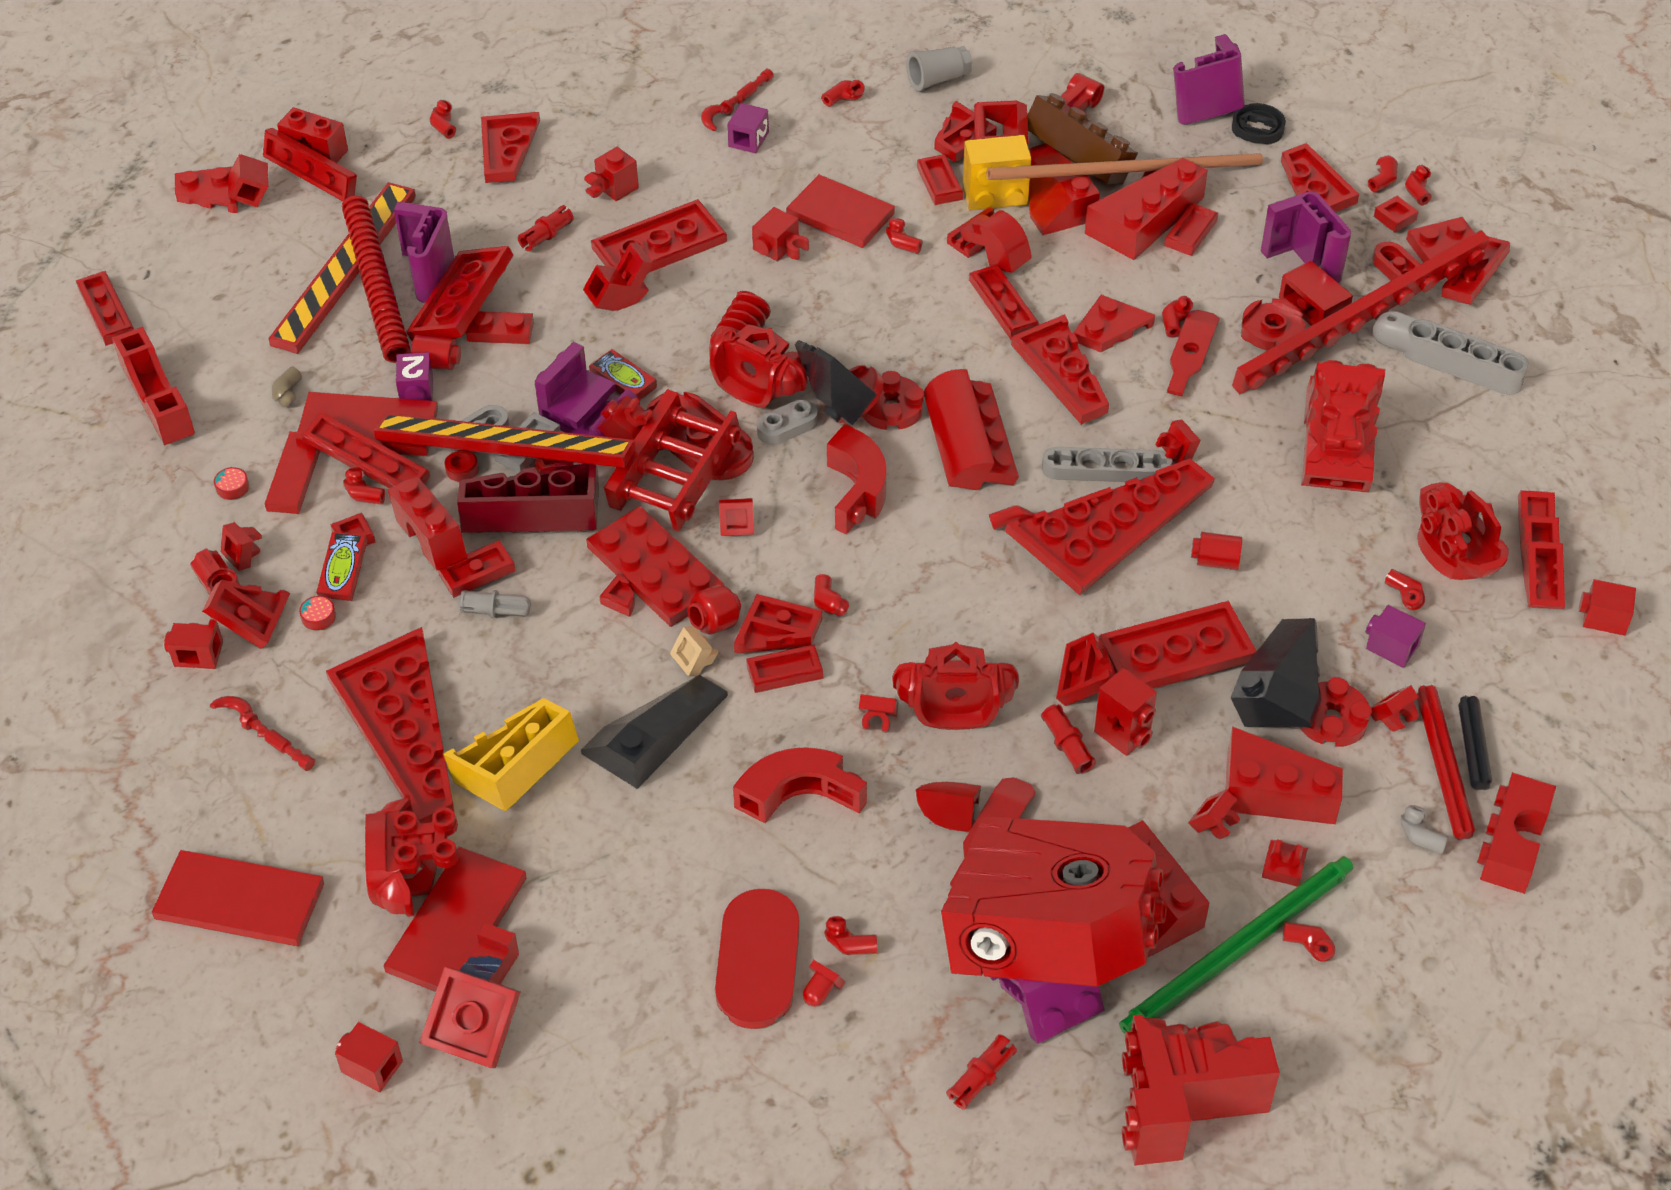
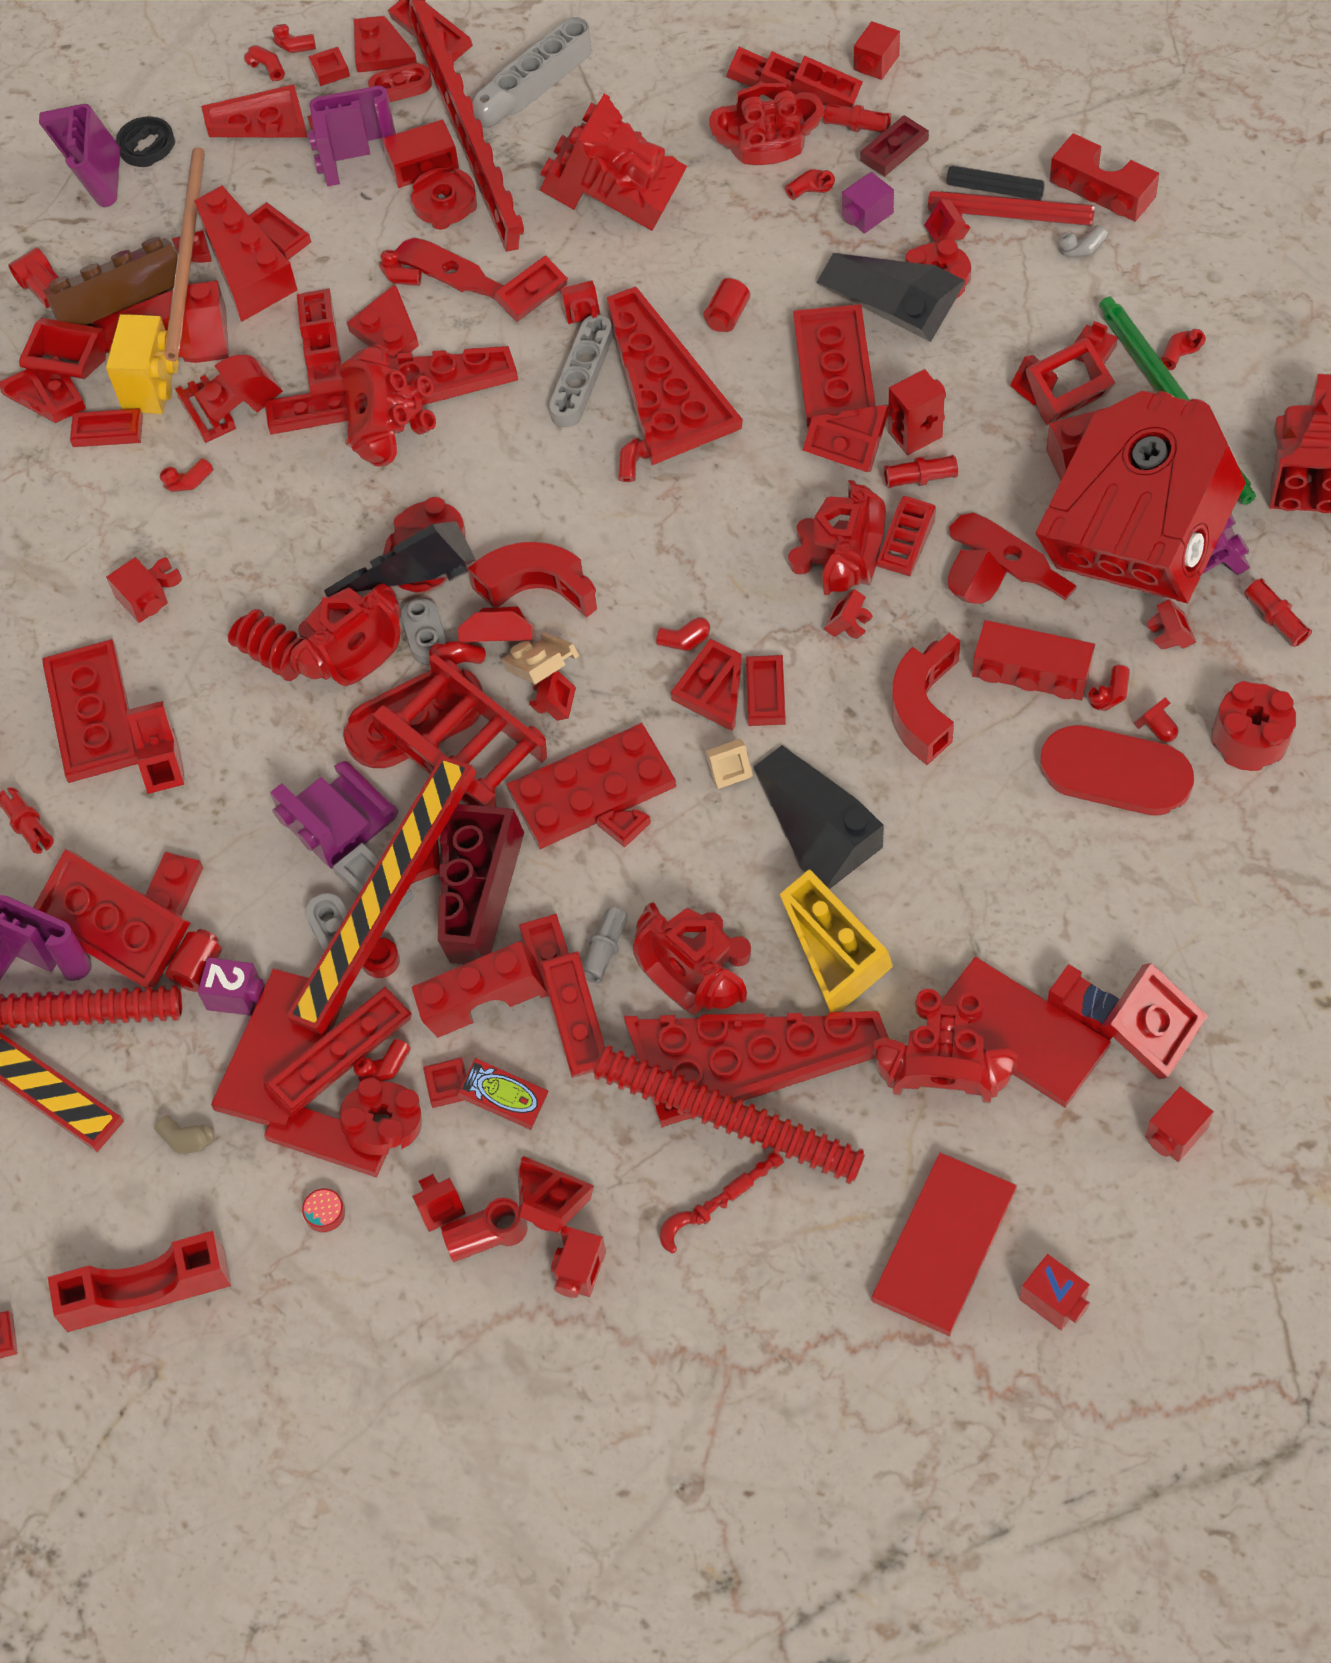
camera: 70 degrees left, 10 degrees up
(191, 982) = (1055, 1293): none -> red brick
(302, 478) = (380, 1098): none -> red plate
(317, 612) = (560, 1130): tile -> none
(329, 712) = (728, 1114): none -> red piece
(419, 595) = (573, 1012): none -> red tile
(482, 660) = (688, 967): none -> red piece
(623, 418) = (391, 770): red brick -> none
(624, 374) = (299, 771): tile -> none
(714, 609) = (679, 734): red head -> none
(758, 436) = (459, 652): none -> red arm
(766, 492) = (539, 659): none -> tan plate
(799, 466) = (496, 625): none -> red slope
(827, 1061) = (1254, 725): none -> red brick
(840, 211) = (117, 527): red tile -> none
(861, 864) = (1033, 660): none -> red brick
(936, 980) = (1175, 626): none -> red tile
(969, 431) = (502, 471): red brick -> none
(998, 754) = (914, 515): none -> red slope
(1000, 326) = (388, 404): none -> red piece
(1081, 281) = (320, 342): none -> red slope
(1182, 403) = (531, 288): none -> red plate
(1201, 852) = (1098, 386): none -> red tile
(1281, 781) = (1009, 324): red wedge -> none
(1485, 646) = (894, 145): none -> dark red plate
(1509, 610) = (856, 118): none -> red pin

